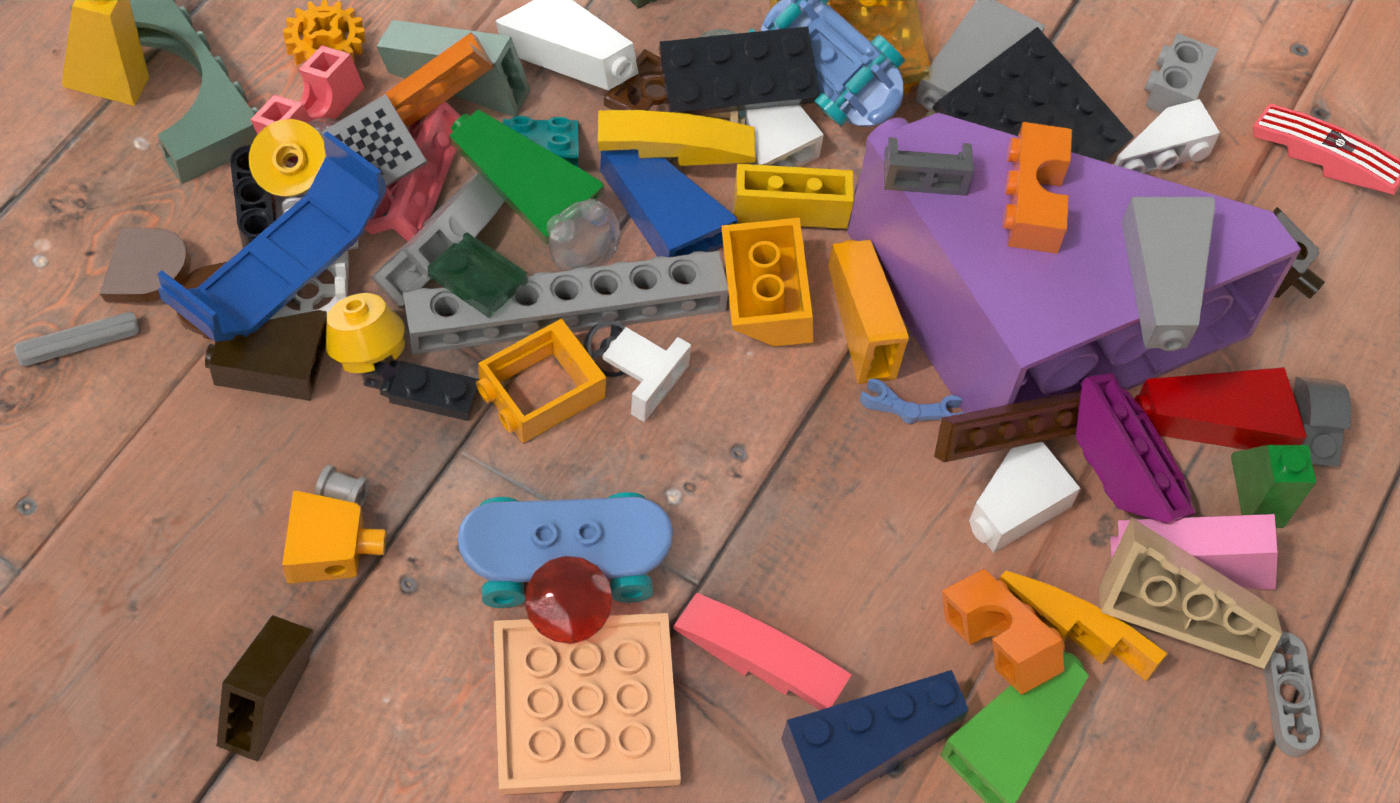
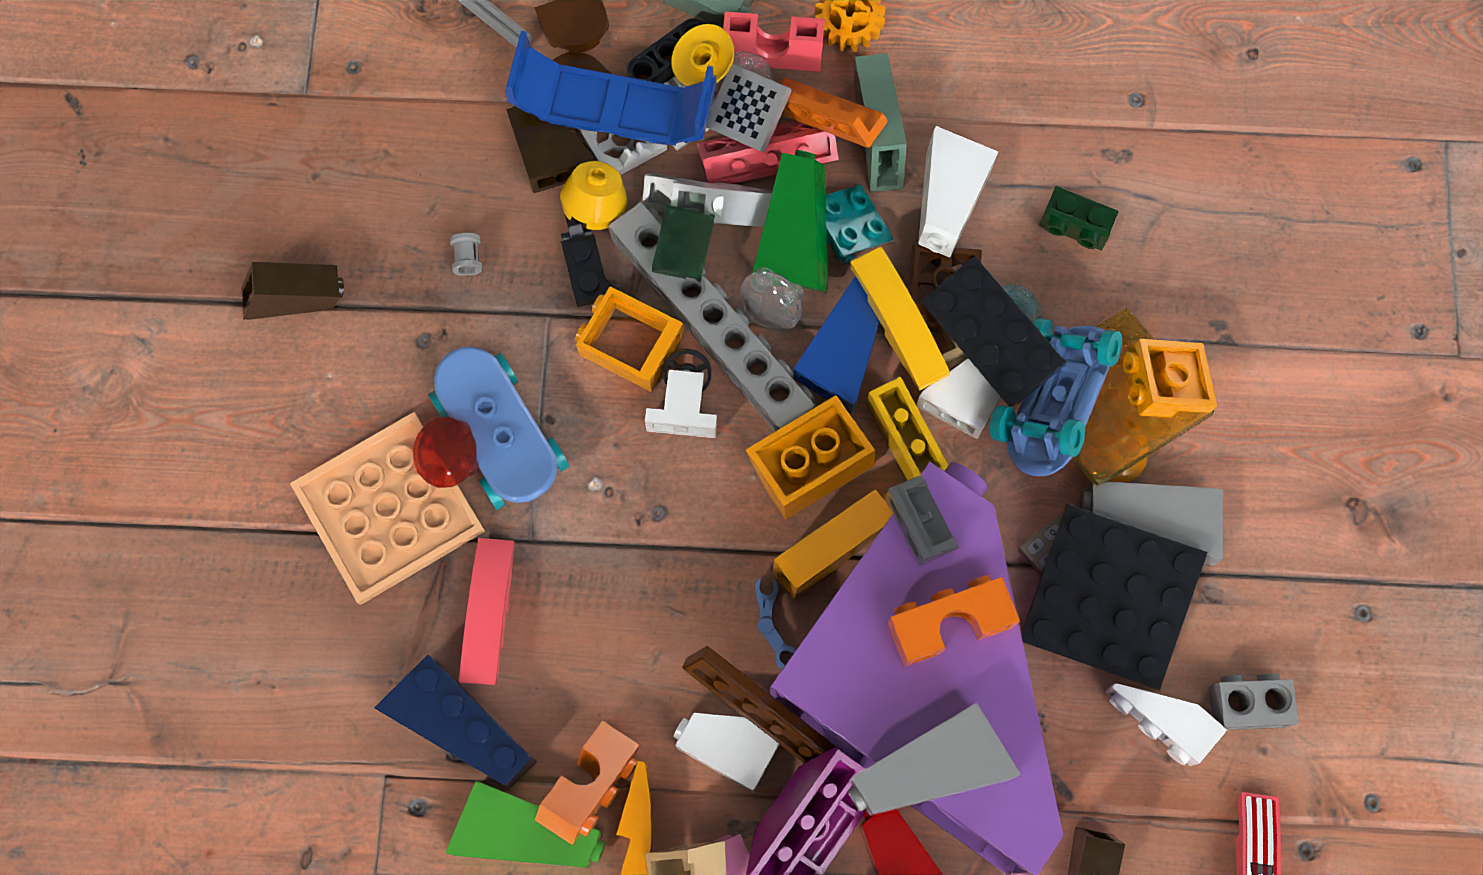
camera: 70 degrees right, 15 degrees up
(327, 539) = (420, 266): light orange torso -> none

